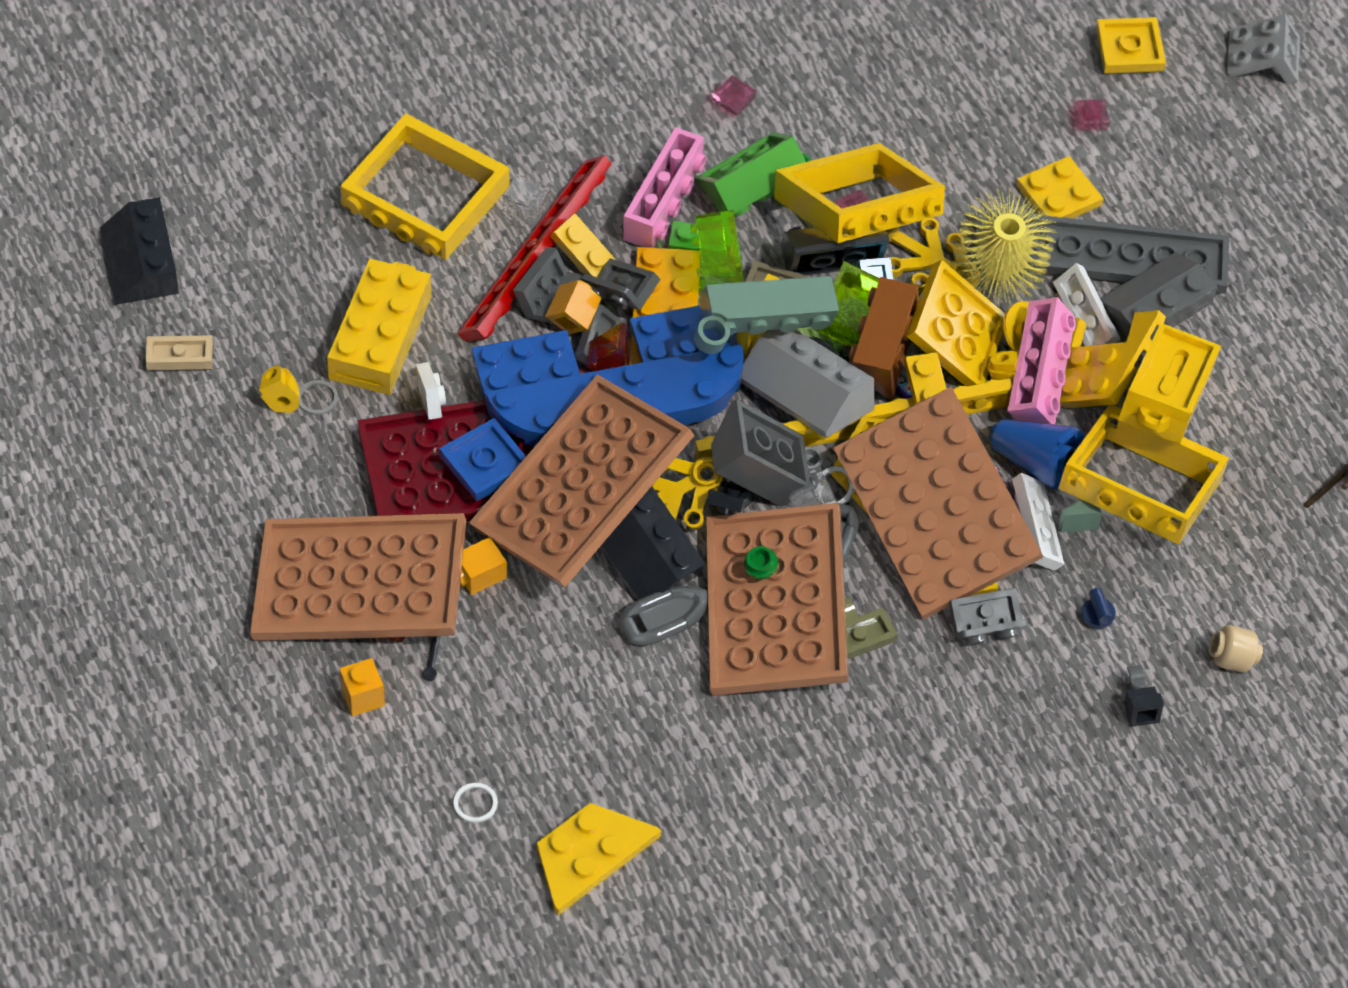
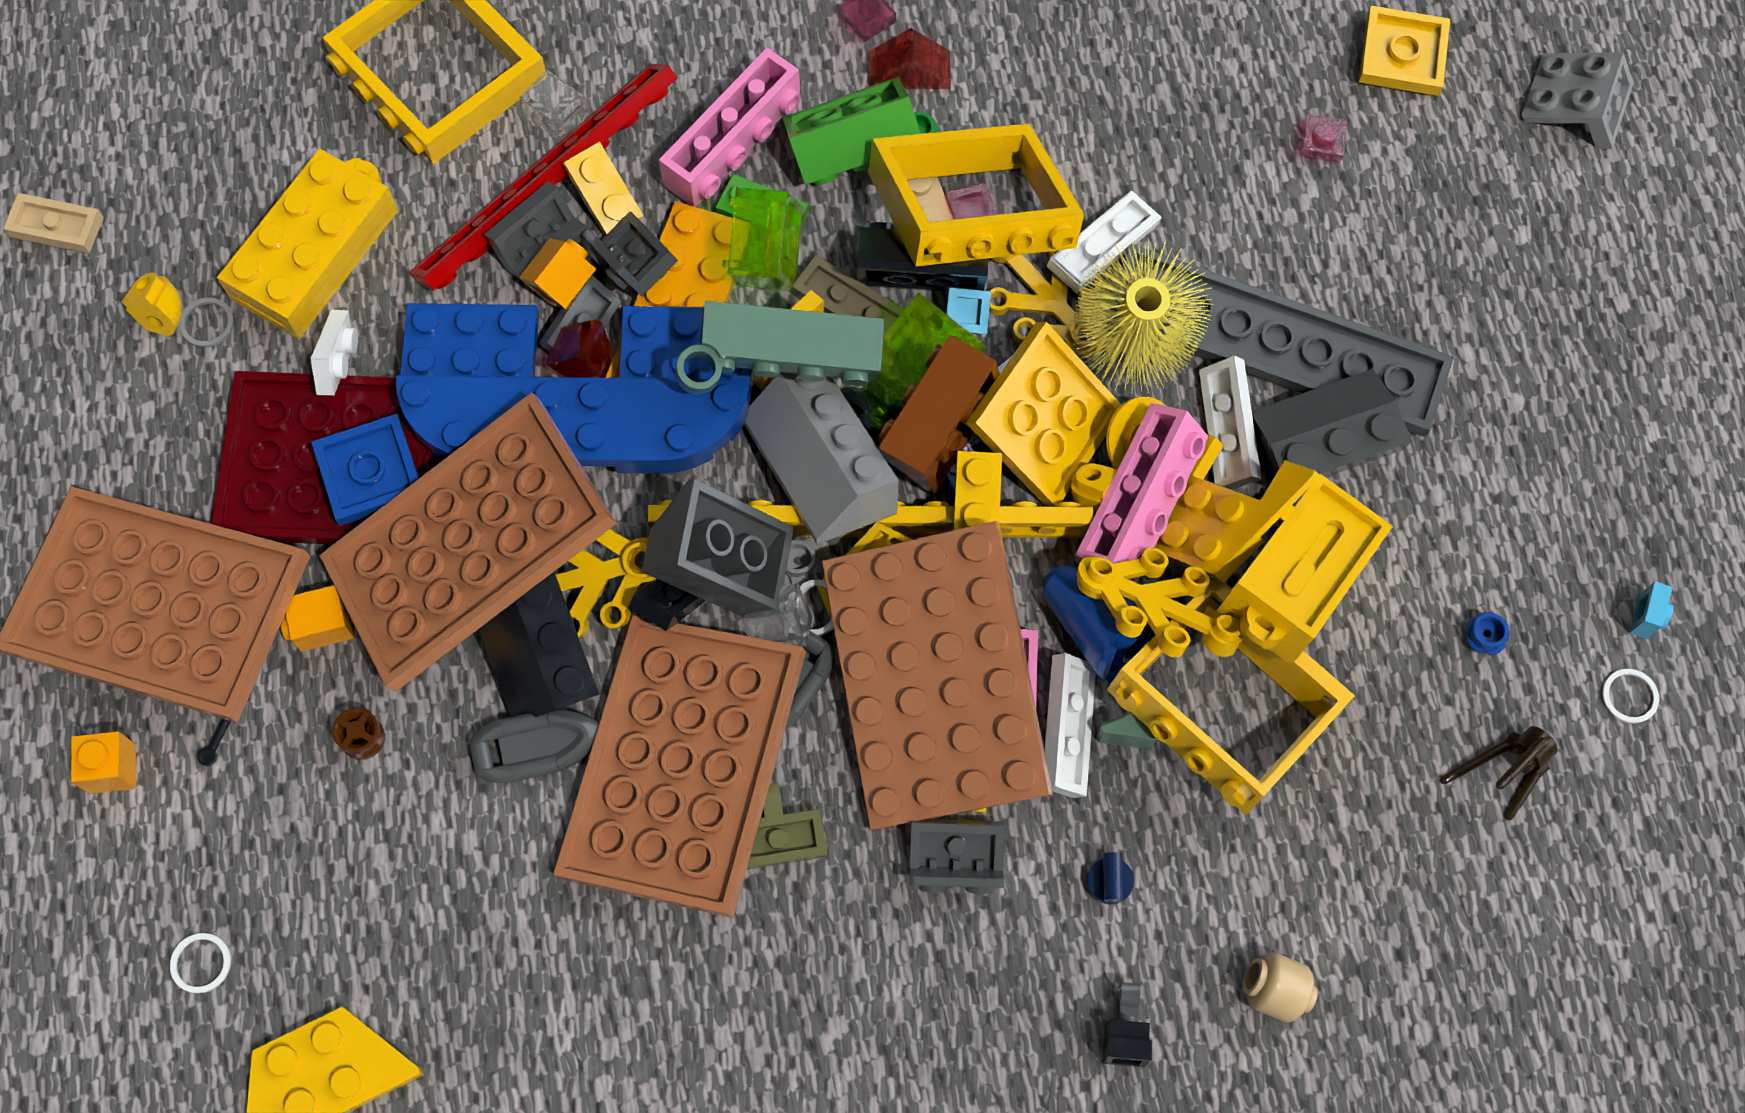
camera: 15 degrees right, 15 degrees up
(139, 253) = (57, 74): black slope -> none
(531, 627) = (352, 726): none -> reddish brown wheel
(761, 562) = (672, 711): green plate -> none
(776, 117) = (913, 59): none -> clear red slope
(946, 227) = (1122, 222): none -> white tile
(1061, 190) = (1249, 239): yellow plate -> none
(1065, 424) = (1109, 581): none -> yellow plant
(1309, 399) = (1494, 625): none -> blue plate

